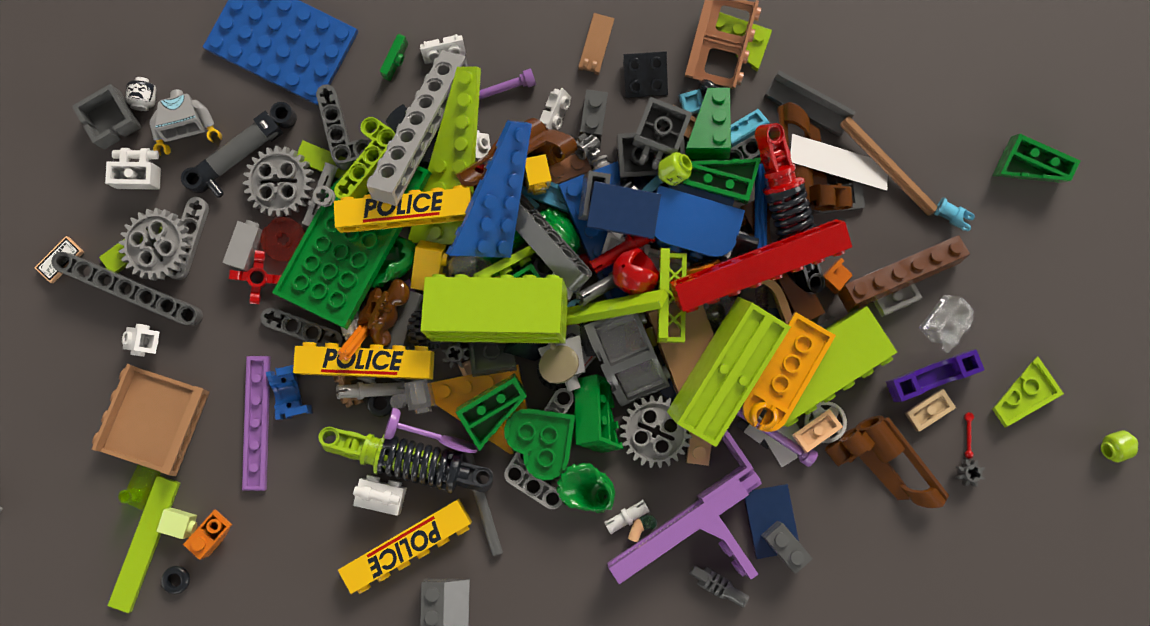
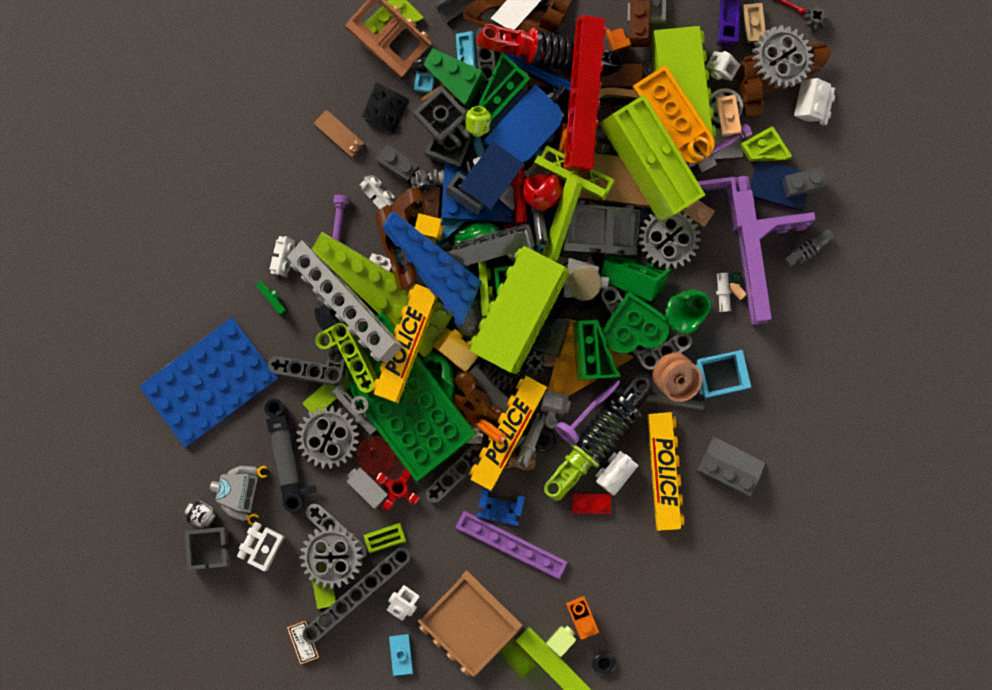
camera: 60 degrees left, 0 degrees up
(90, 364) = (400, 654): none -> medium azure plate
(216, 302) = (369, 543): none -> lime tile
(337, 484) = (591, 503): none -> red plate
(509, 511) = (677, 377): none -> nougat wheel
(549, 579) = (741, 372): none -> medium azure window
(803, 486) = (765, 147): none -> lime wing
(867, 398) = (722, 66): none -> white brick
(880, 515) = (815, 101): none -> white brick
(899, 476) = (774, 42): none -> light grey gear

